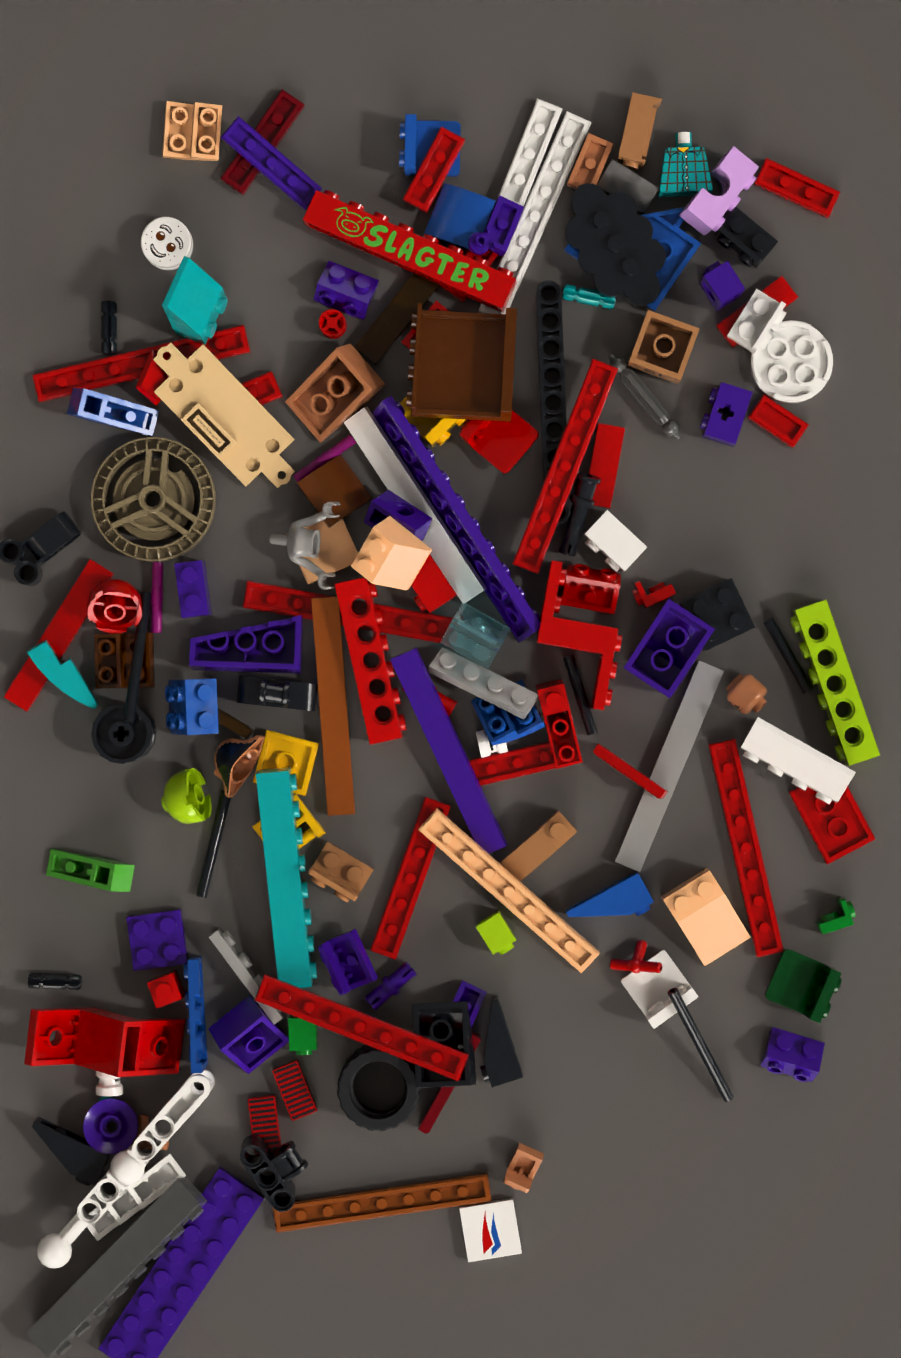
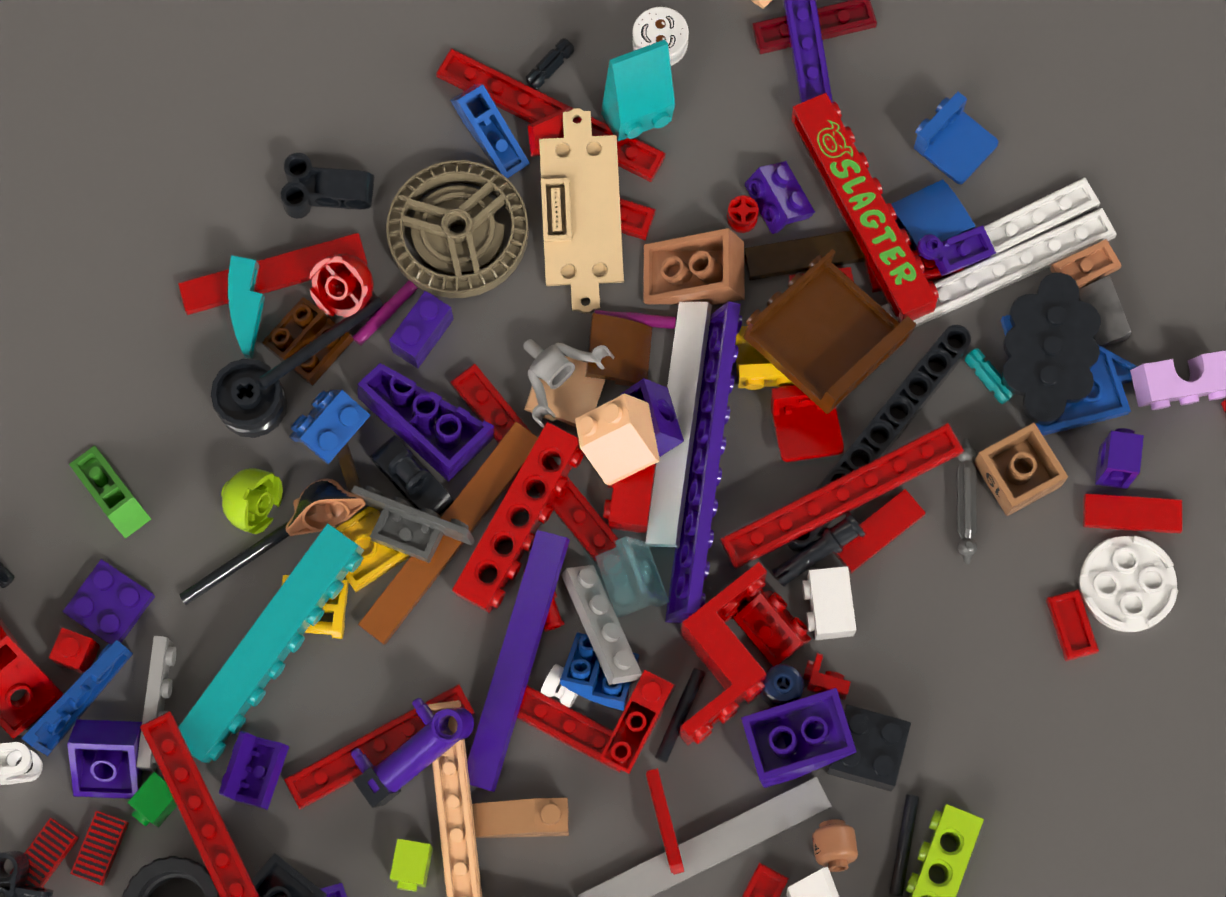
camera: 45 degrees right, 15 degrees down
(306, 730) = (410, 529): none -> dark grey bracket
(340, 872) = (323, 684): medium nougat bracket -> none
(390, 985) = (272, 829): dark purple pin -> none
(434, 169) = (942, 160): red tile -> none
(440, 867) = (384, 781): none -> dark purple piece
(625, 614) = (773, 694): none -> dark blue head
(638, 130) = (1153, 272): medium nougat window -> none
(684, 169) = (1167, 335): teal torso -> none
(737, 402) = (1016, 590): dark purple brick -> none
(745, 238) = (1174, 441): black bracket -> none
(756, 321) = (1124, 518): white bracket -> none

